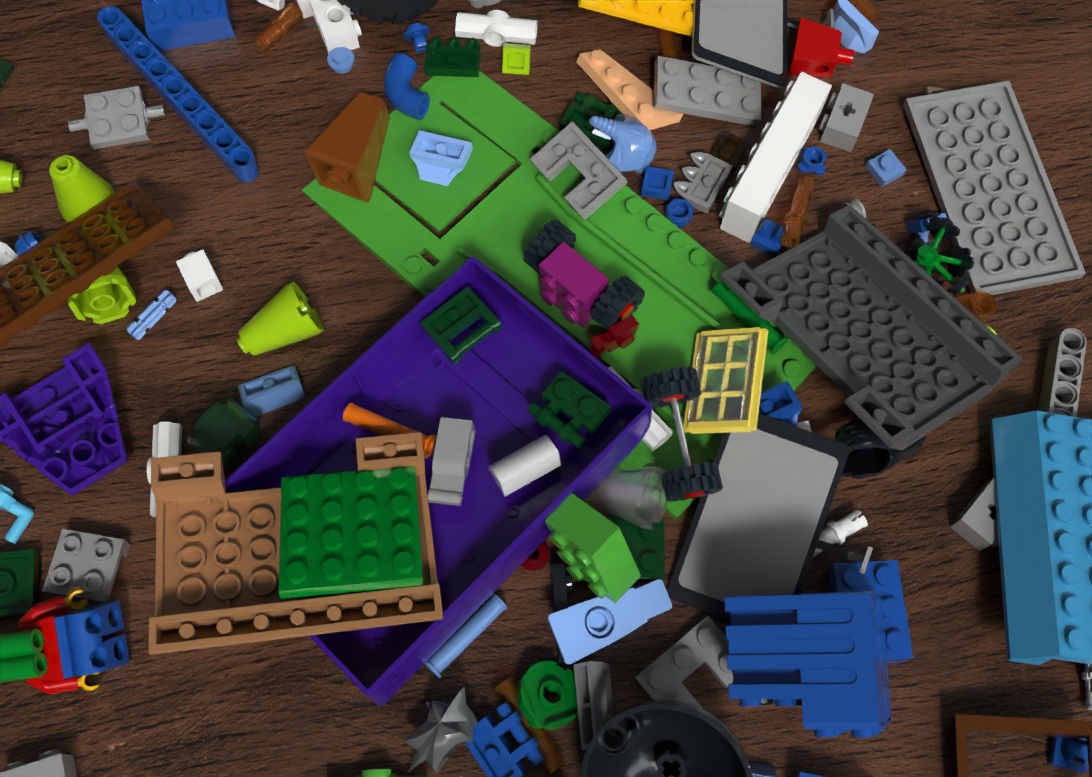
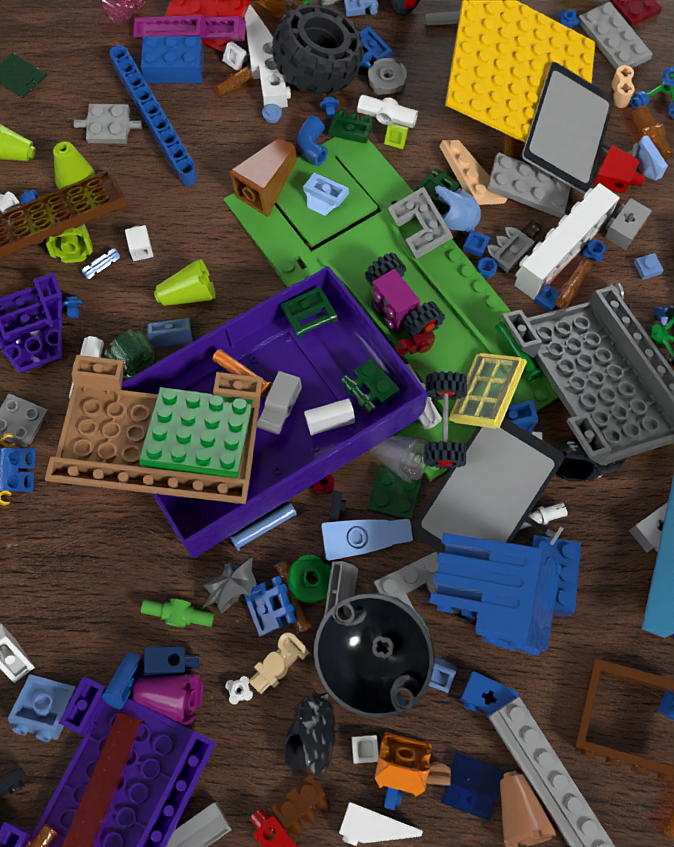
camera: 15 degrees right, 0 degrees up
(123, 381) = (72, 304): none -> blue plate
(592, 548) = (363, 484): bright green brick -> none

